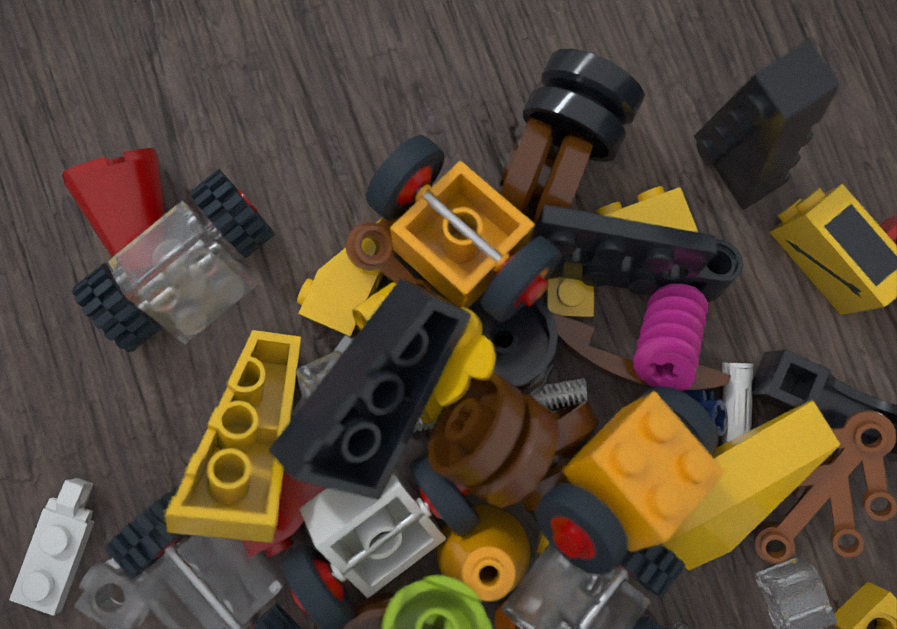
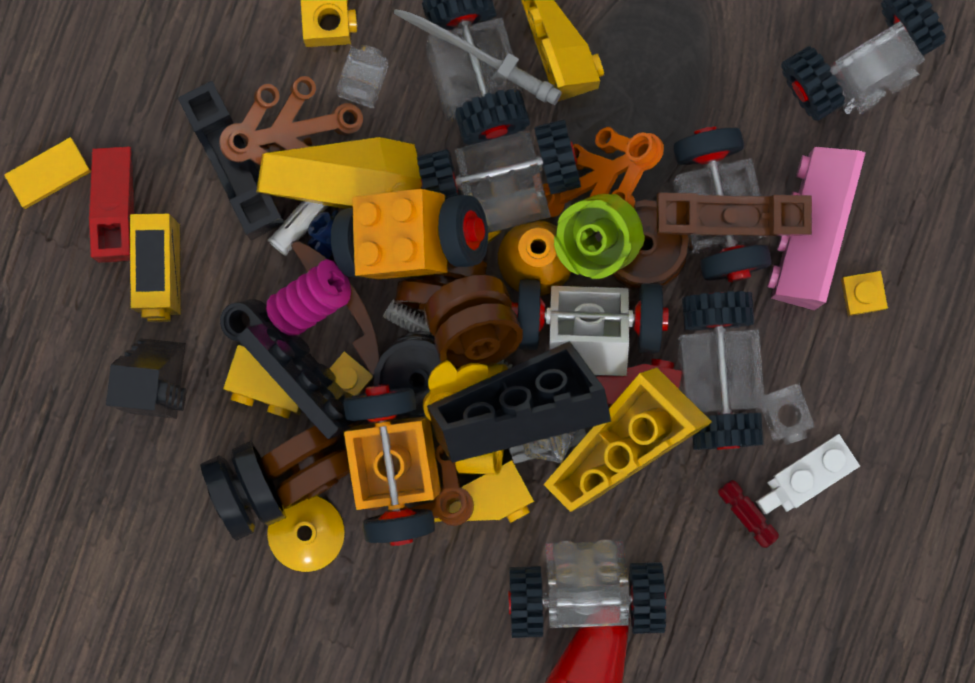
camera: 140 degrees left, 0 degrees up
(87, 466) = (748, 514): none -> dark red axle
(475, 140) = (324, 543): none -> yellow dish

